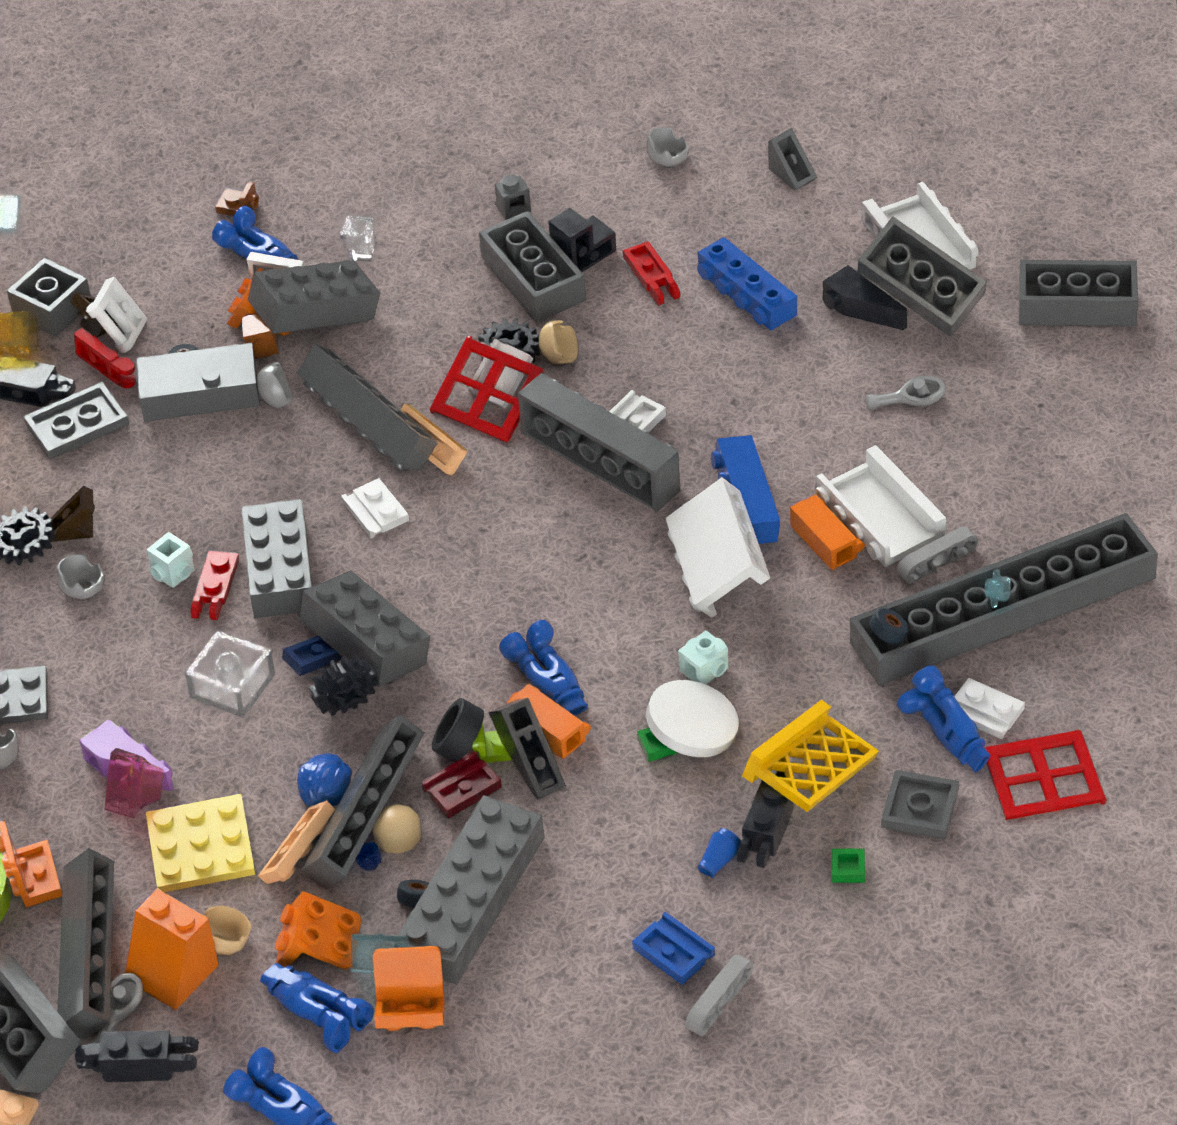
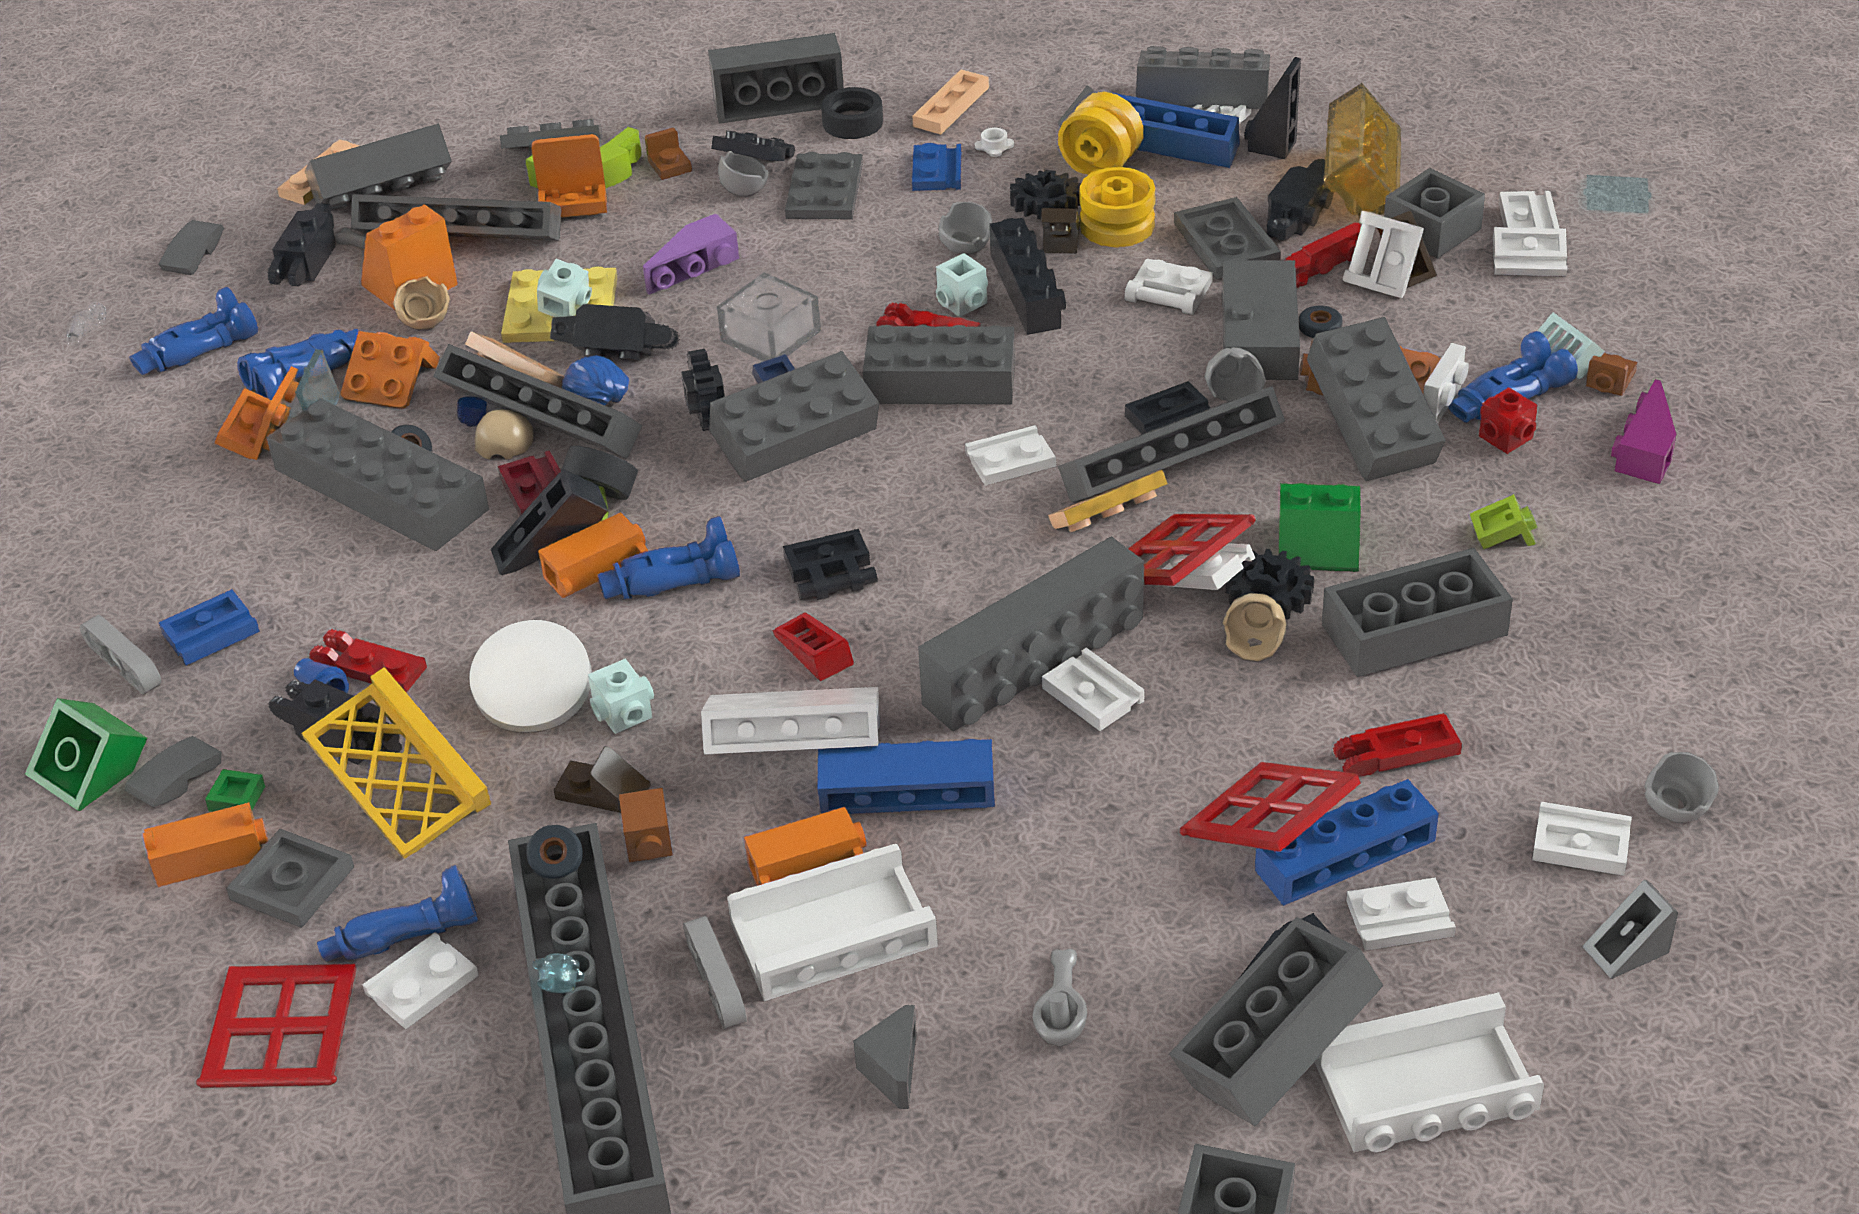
camera: 100 degrees right, 5 degrees down
(29, 251) = (1527, 210): none -> white plate
(45, 479) = (1117, 207): none -> yellow wheel
(88, 250) = (1529, 251): none -> white plate
(131, 783) = (646, 241): clear pink slope -> none
(135, 445) = (1169, 285): none -> white plate
(139, 528) = (1026, 275): none -> black brick
(220, 808) = (563, 289): none -> light aqua brick
(226, 204) = (1583, 354): none -> light aqua slope
(256, 776) = (613, 330): none -> black hinge
(311, 241) = (1507, 420): none -> red brick
(315, 422) = (1165, 407): none -> black plate
(317, 175) = (1647, 439): none -> magenta slope
(359, 237) = (1501, 456): clear brick -> none
(422, 240) = (1503, 521): none -> lime bracket
(443, 324) = (1320, 525): none -> green slope
(509, 191) = (1578, 611): dark grey brick -> none
(518, 587) = (827, 556): none -> black plate
(581, 238) = (1454, 661): black brick -> none
(616, 558) = (822, 656): none -> red slope
(687, 832) = (364, 659): none -> red hinge
(714, 189) = (1582, 838): none -> white plate
(732, 313) = (1294, 778): none -> red window
(784, 661) = (599, 783): none -> dark brown slope
(793, 262) = (1400, 913): none -> white plate
(827, 613) = (645, 825): none -> dark orange brick
(835, 971) = (83, 752): none -> green slope
(840, 913) = (168, 772): none -> dark grey slope
(907, 860) = (204, 844): none -> orange brick
(979, 456) = (888, 1053): none -> dark grey slope

